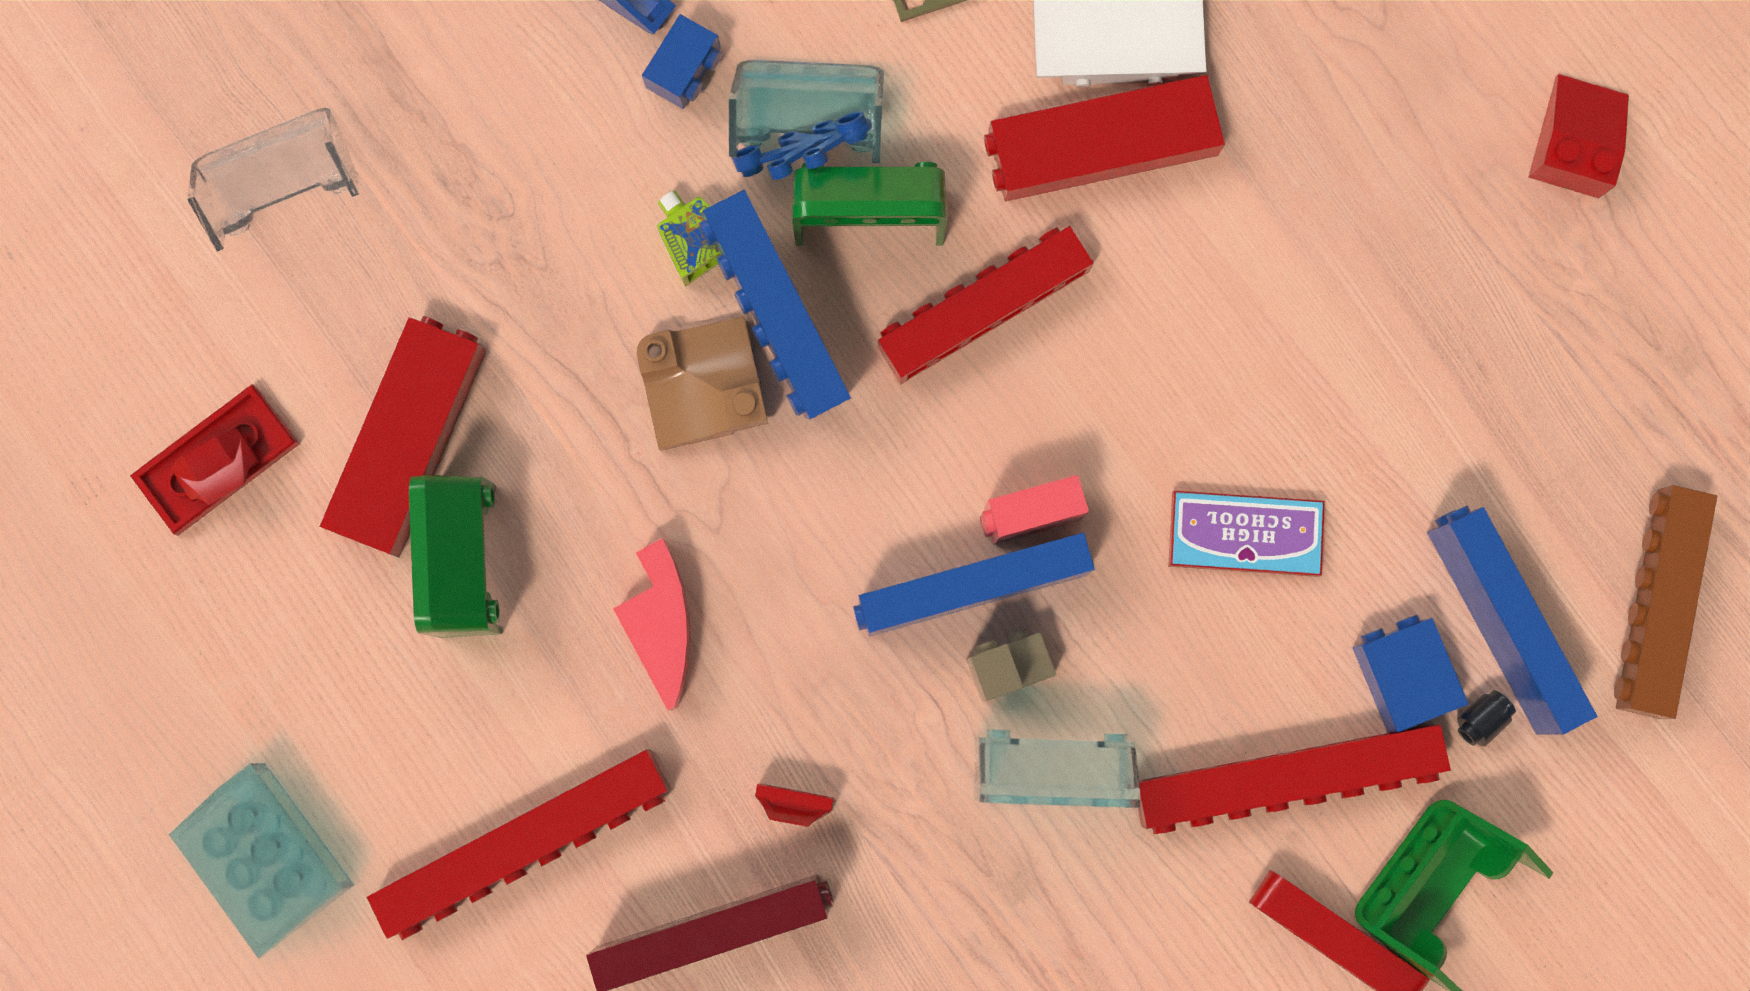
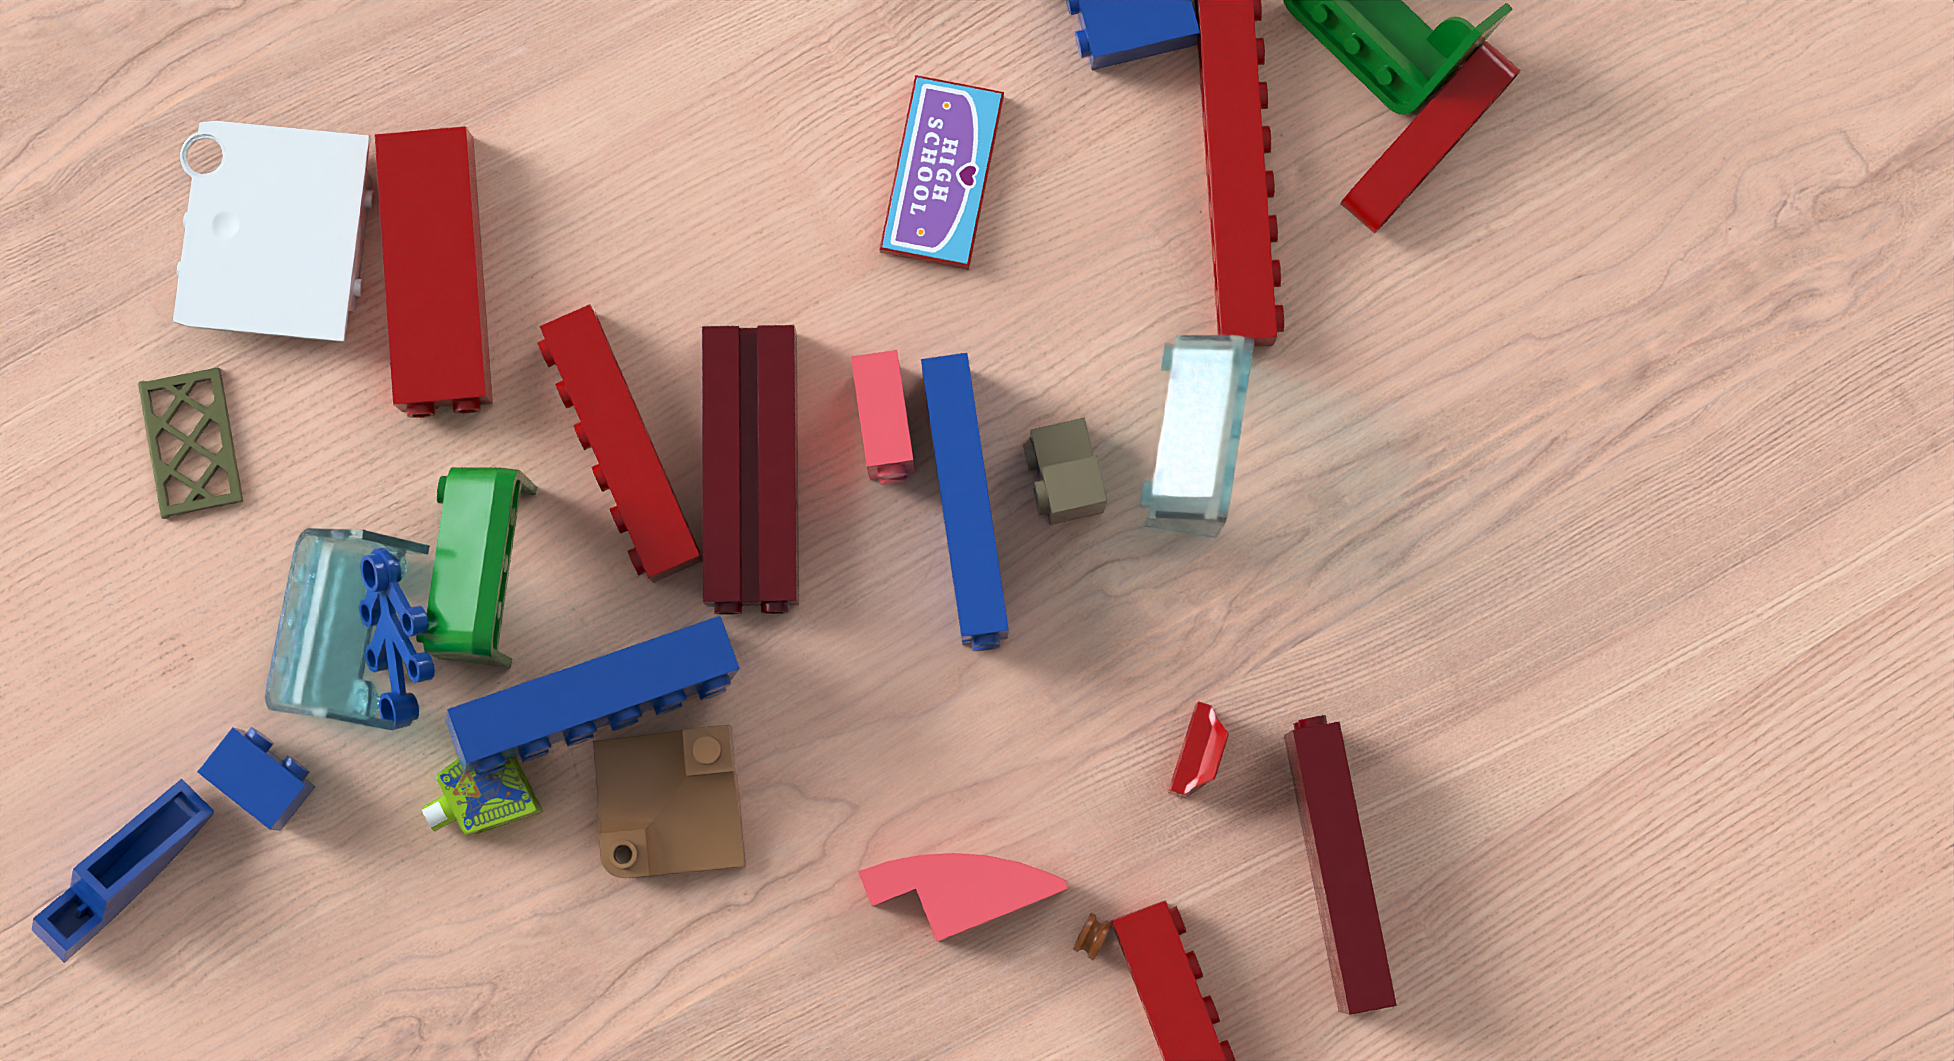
camera: 80 degrees left, 0 degrees up
(633, 735) = (1092, 936): none -> dark orange bush
(979, 410) = (750, 468): none -> dark red brick

